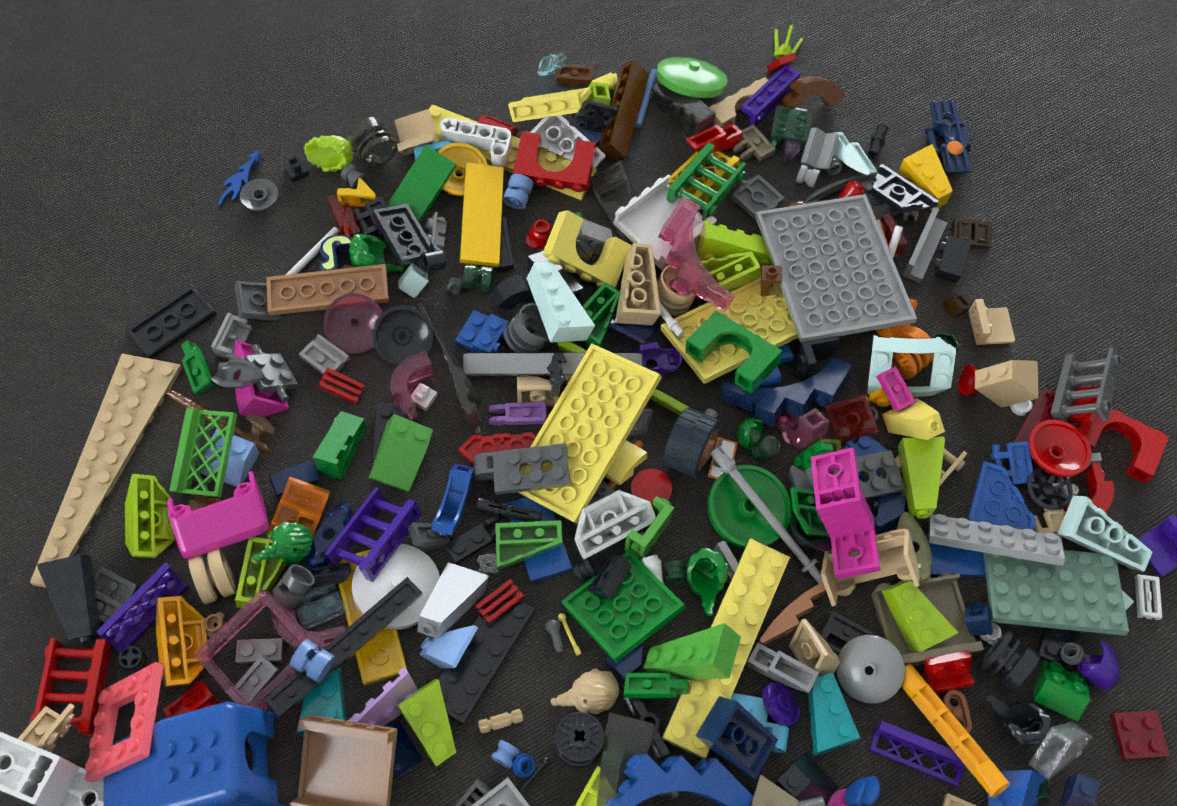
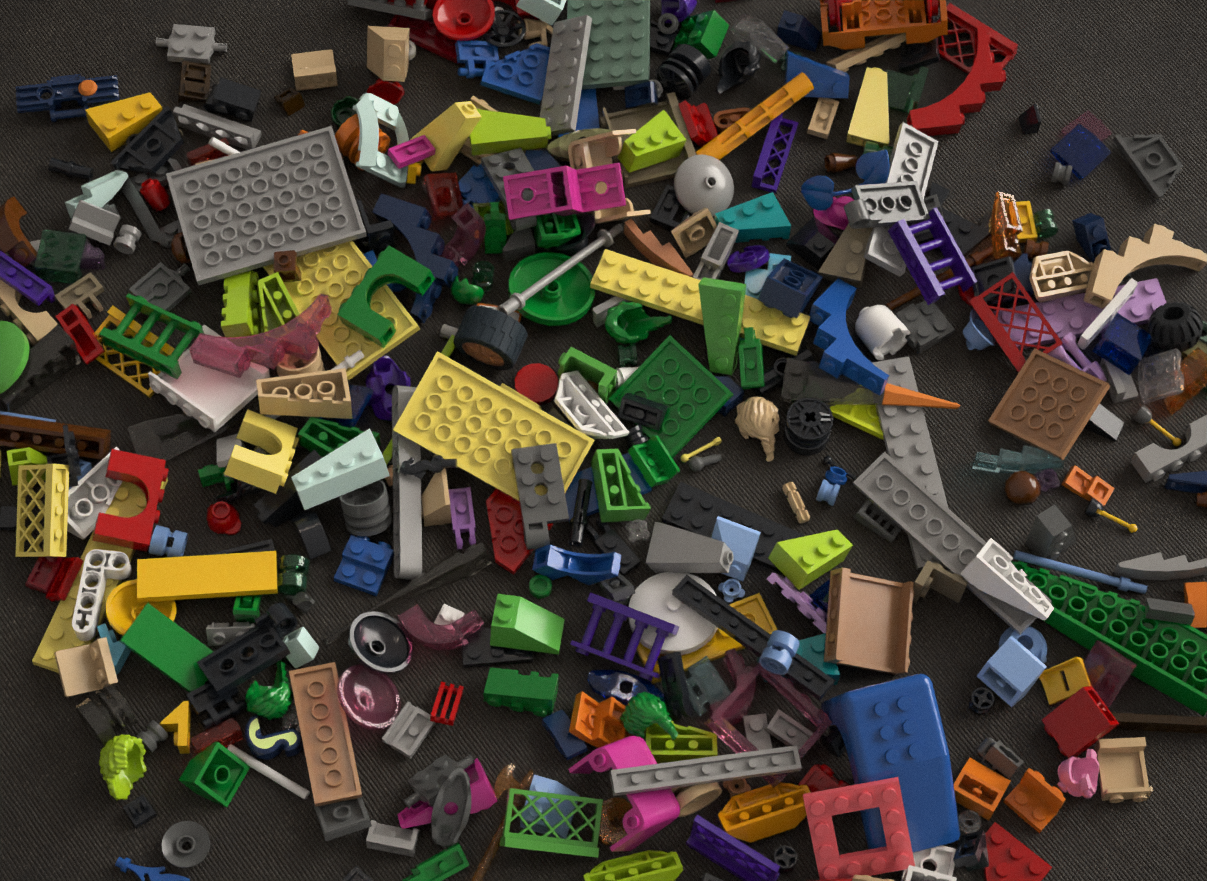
camera: 95 degrees left, 0 degrees up
(208, 580) = (705, 770): none -> light grey plate
(293, 586) = (695, 700): dark grey wheel -> none
(310, 215) = (215, 774): none -> green slope
(408, 641) = (731, 584): none -> light blue plate
(441, 473) = (540, 586): none -> green tile
(450, 241) = (247, 608): none -> green slope
(502, 112) = (44, 573): none -> dark red plate
(514, 589) = (687, 504): red tile -> none
(554, 582) = (654, 461): none -> green bracket
(1012, 232) = (191, 44): none -> light grey plate

